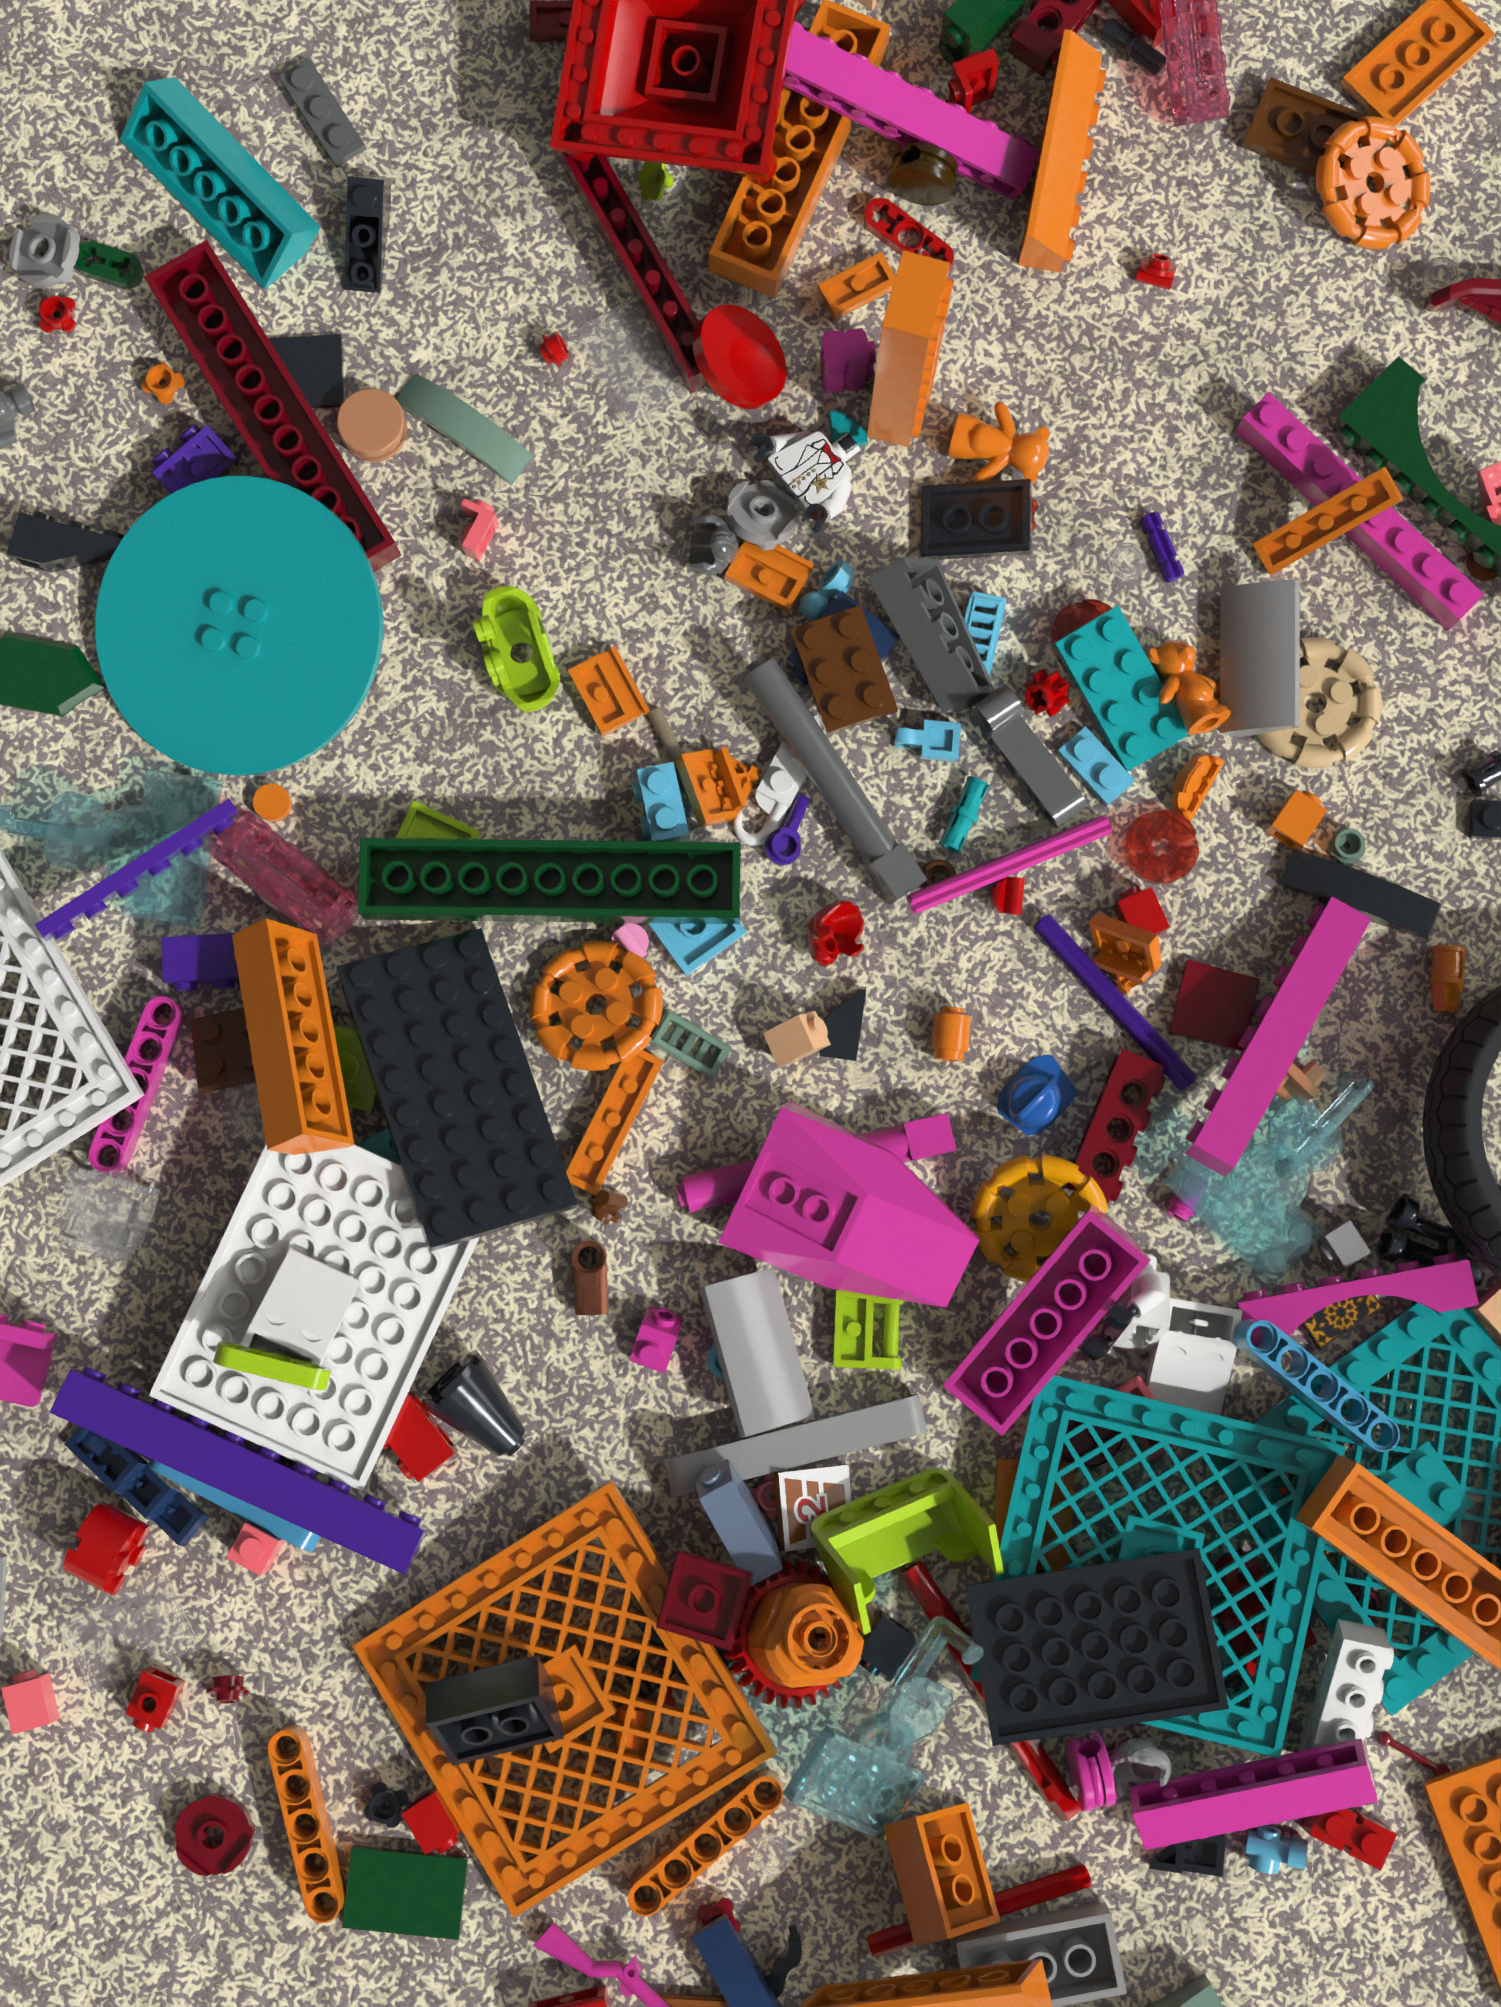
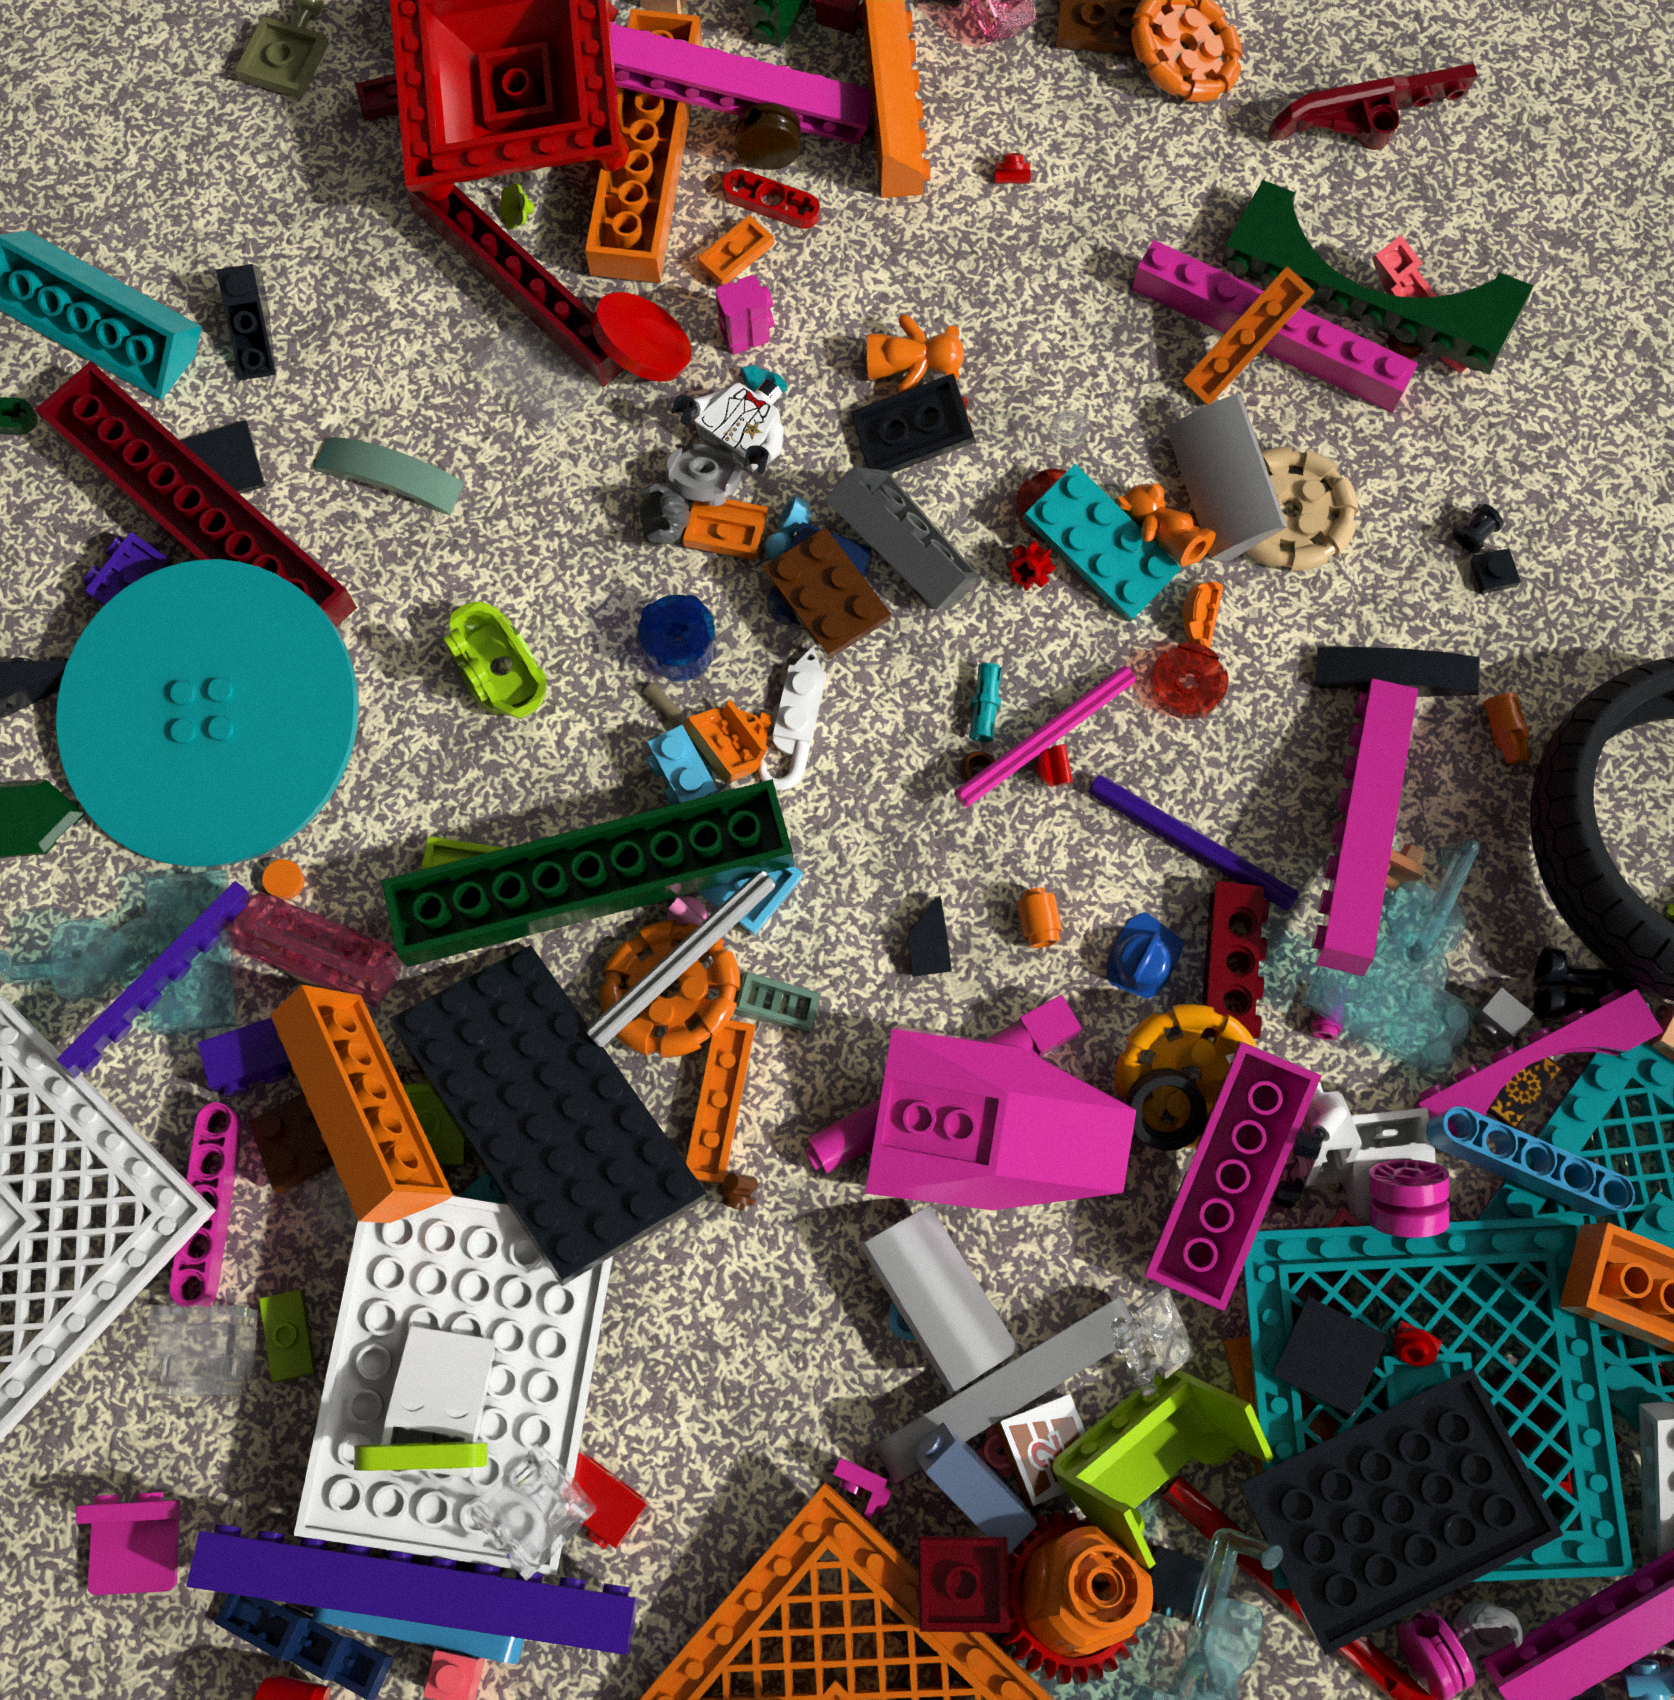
camera: 15 degrees left, 10 degrees down
(158, 373) = (71, 502): orange plate -> none
(181, 1219) = (287, 1336): none -> lime plate
(322, 112) = (180, 229): dark grey plate -> none
(355, 1434) = (532, 1510): none -> clear piece
(372, 425) = (297, 493): nougat head -> none
(476, 1406) = (657, 1446): black cone -> none
(478, 534) = (428, 561): coral bracket -> none
(554, 349) = (458, 380): red plate -> none
(590, 1283) = (742, 1277): copper piece -> none
(608, 691) = (598, 679): orange plate -> none
(613, 983) = (680, 958): none -> light grey axle
(643, 1483) = (857, 1478): none -> dark pink bracket
(656, 1338) = (829, 1317): dark pink bracket -> none
(713, 674) = (676, 617): none -> clear blue brick
(783, 844) = (815, 778): dark purple plate -> none
(797, 1038) = (885, 963): light nougat brick -> none
(835, 932) = (892, 848): red hair -> none
(855, 1331) = (1034, 1248): lime plate -> none
(887, 861) = (926, 767): dark grey brick -> none
(909, 348) = (805, 260): orange brick -> none
(937, 740) = (936, 638): medium azure plate -> none
(943, 1440) = (1163, 1336): none -> clear plate
(973, 79) = (792, 41): red bracket -> none
(992, 603) = (948, 505): medium azure slope -> none
(1002, 1271) = (1189, 1131): none -> black tyre
(1026, 756) = (1028, 629): dark grey beam -> none
(1080, 1501) = (1330, 1356): none -> black tile
(1095, 766) = (1100, 623): medium azure plate -> none
(1124, 951) = (1187, 786): orange slope -> none
(1141, 910) = (1190, 750): red brick -> none
(1158, 1514) = (1415, 1345): none -> red plate
(1161, 547) = (1097, 407): dark purple axle -> none
(1196, 1386) = (1409, 1198): none -> dark pink wheel
(1213, 1005) = (1290, 818): dark red tile -> none
(1297, 819) = (1311, 619): orange brick -> none
(1350, 836) = (1374, 624): sand green plate -> none

